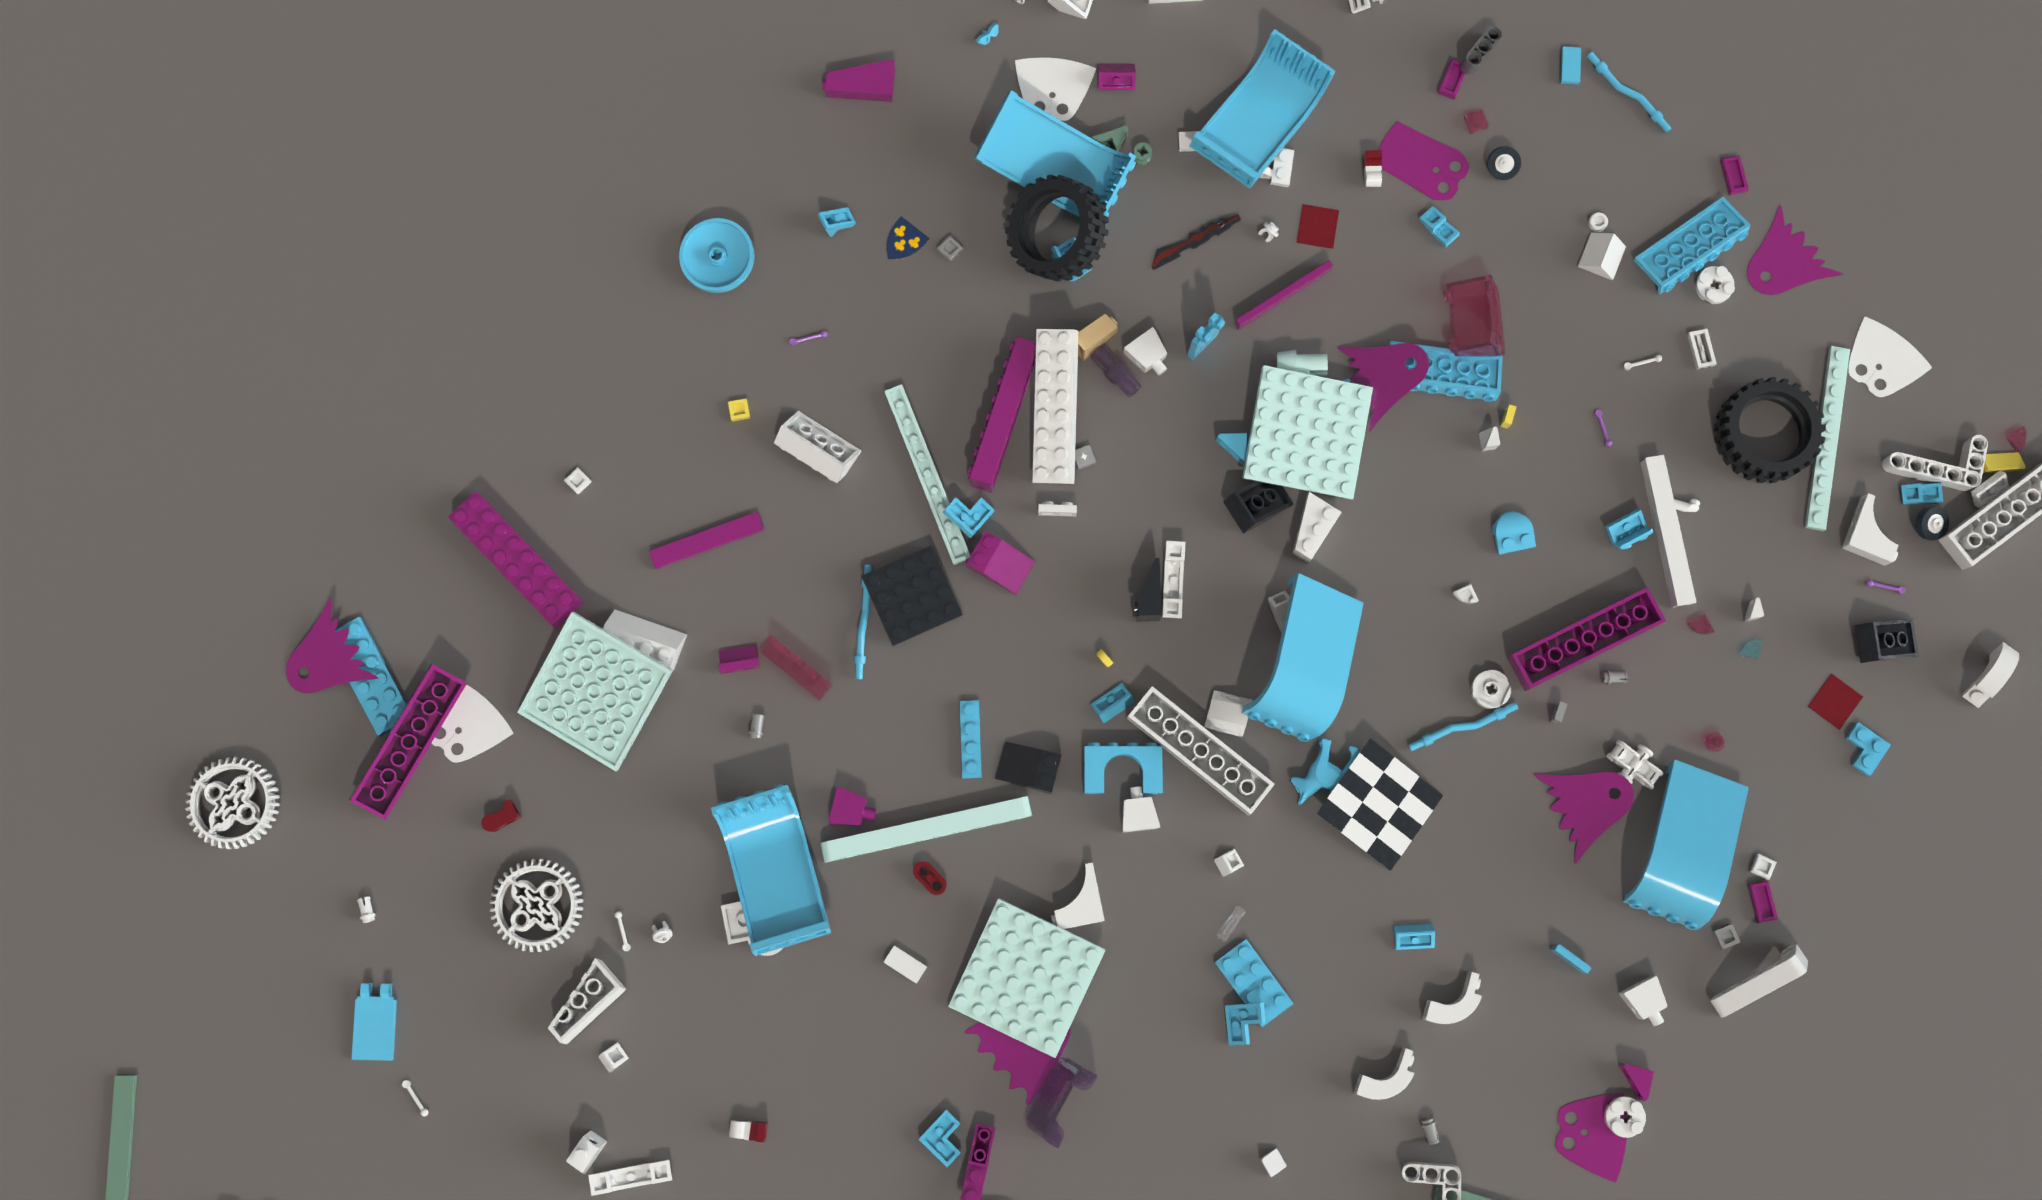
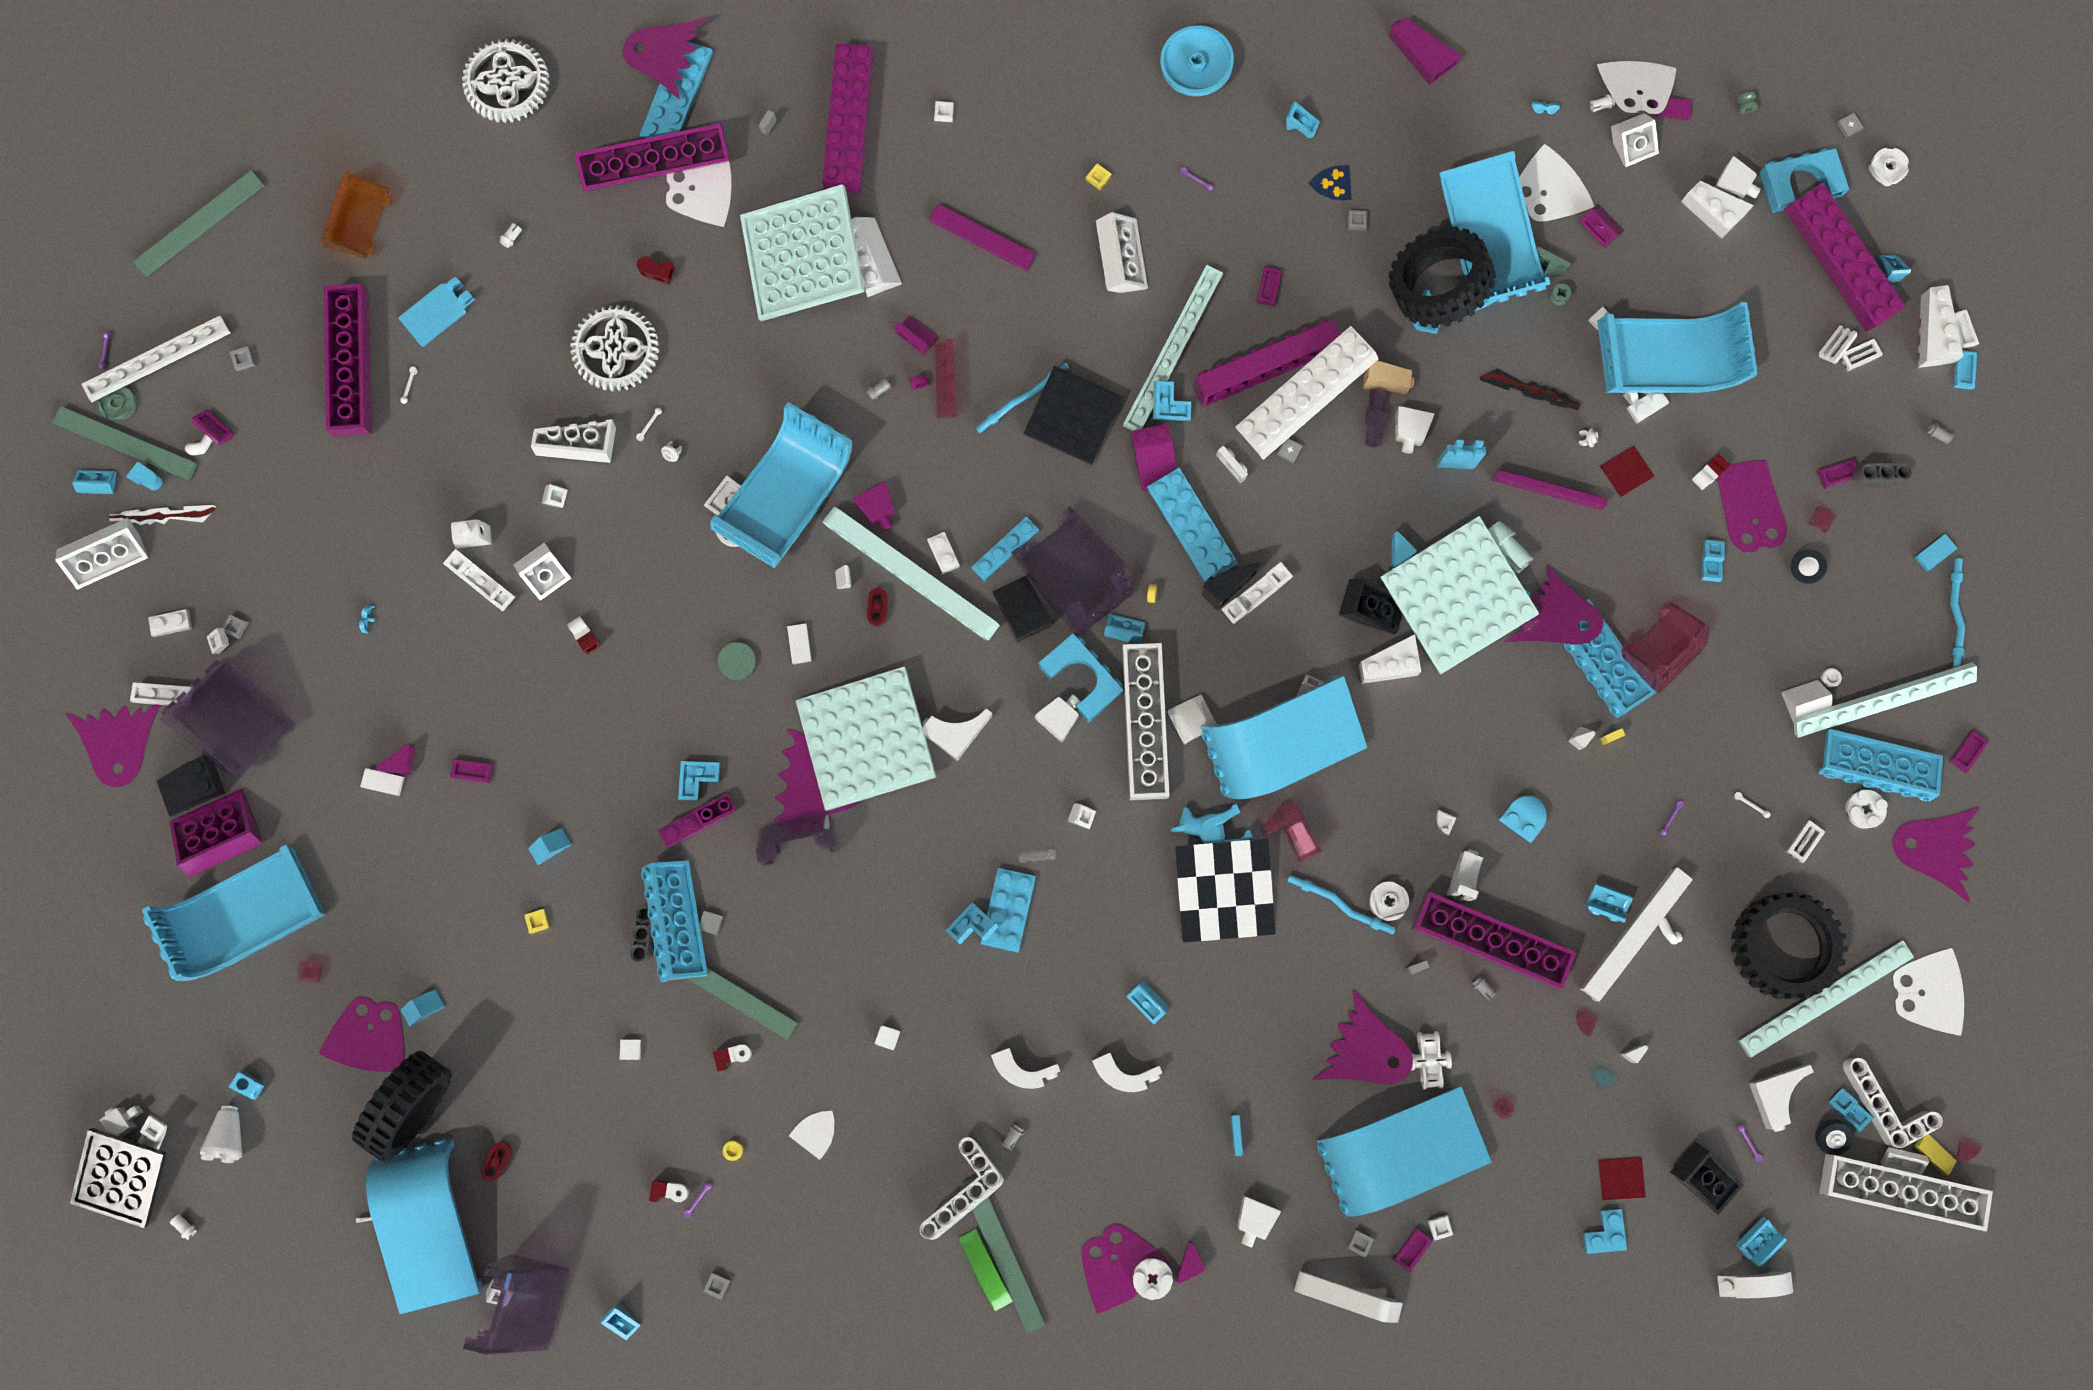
camera: 50 degrees right, 0 degrees up
(233, 1023) = (354, 215): none -> clear orange windscreen
(350, 1131) = (347, 360): none -> magenta brick
(461, 625) = (767, 122): none -> light grey tile
(667, 1120) = (542, 571): none -> white slope
(779, 690) = (919, 382): none -> magenta tile
(876, 1025) = (736, 661): none -> sand green tile
(882, 884) = (843, 577): none -> white slope
(931, 789) = (943, 553): none -> white plate
(942, 359) = (1269, 286): none -> magenta tile
(1038, 702) = (1077, 573): none -> clear purple windscreen
(1078, 581) = (1192, 525): none -> medium azure plate
(1382, 711) = (1296, 830): none -> clear pink brick
(1522, 618) = (1465, 877): none -> white arch
(1647, 199) = (1885, 699): none -> light aqua plate
(1965, 643) = (1760, 1242): none -> medium azure bracket

